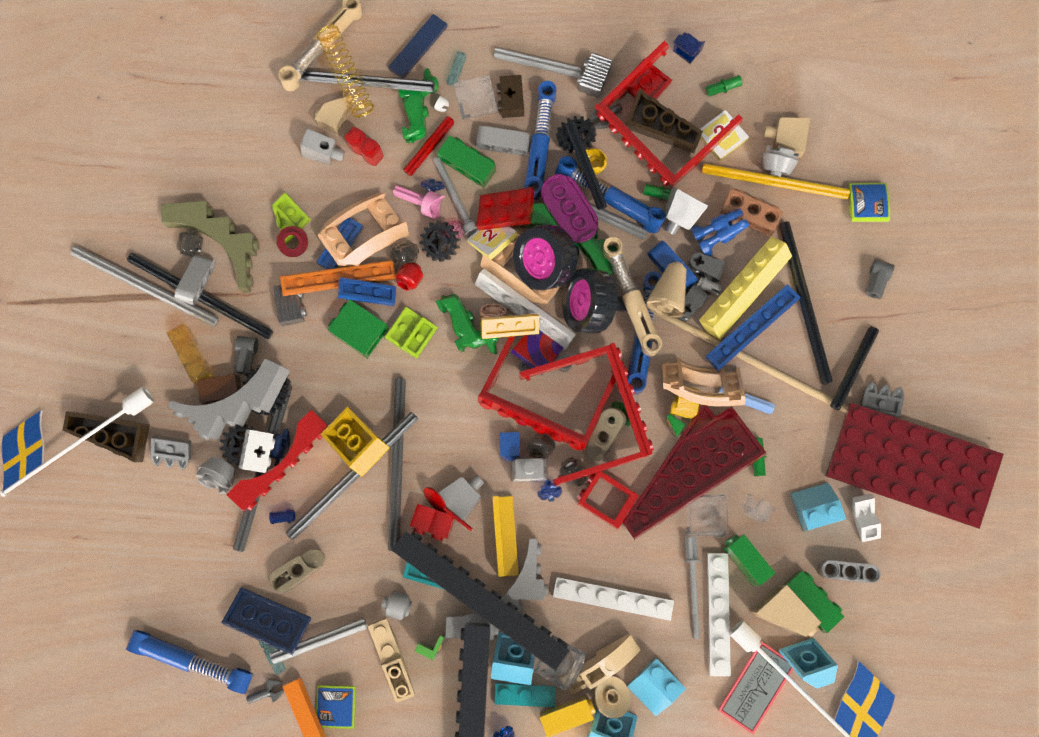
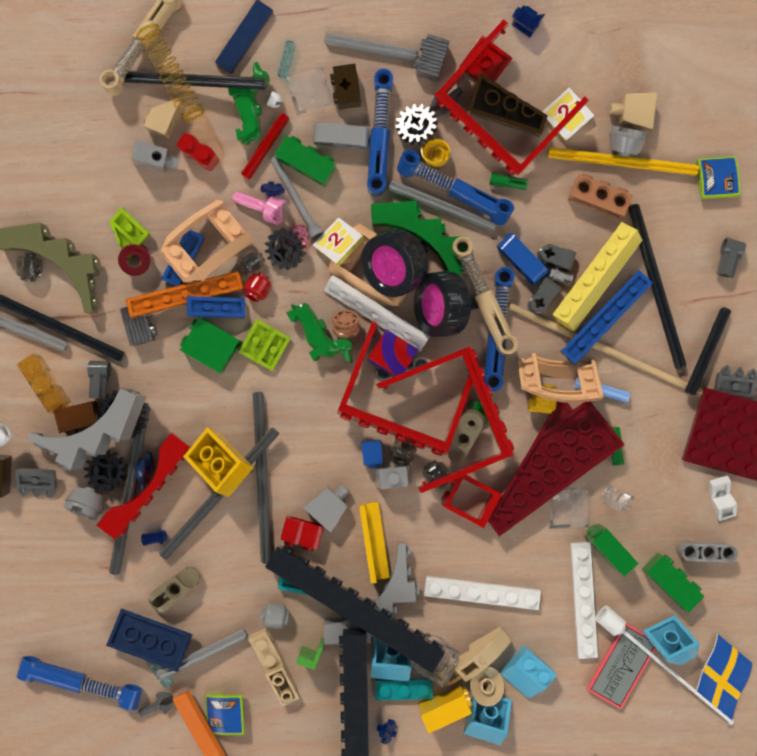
camera: 10 degrees left, 10 degrees up
(194, 279) = (38, 306): light grey beam -> none
(252, 441) = (117, 469): white brick -> none
(438, 503) = (306, 514): red piece -> none
(505, 209) = (349, 211): red plate -> none
(509, 325) = (363, 334): plate -> none
(549, 491) = (413, 495): clear blue plant -> none
(569, 207) = (415, 206): magenta tile -> none
(586, 166) = (429, 160): black axle -> none
(669, 291) = (522, 288): tan cone -> none
(674, 424) = (534, 421): green slope -> none
(682, 210) = (530, 200): torso -> none
(692, 557) = (556, 550): light grey piece -> none
(724, 85) = (566, 60): green axle -> none
(725, 230) = (573, 215): blue piece -> none
(787, 611) = (647, 595): tan slope -> none
(817, 506) = (675, 491): medium azure slope -> none

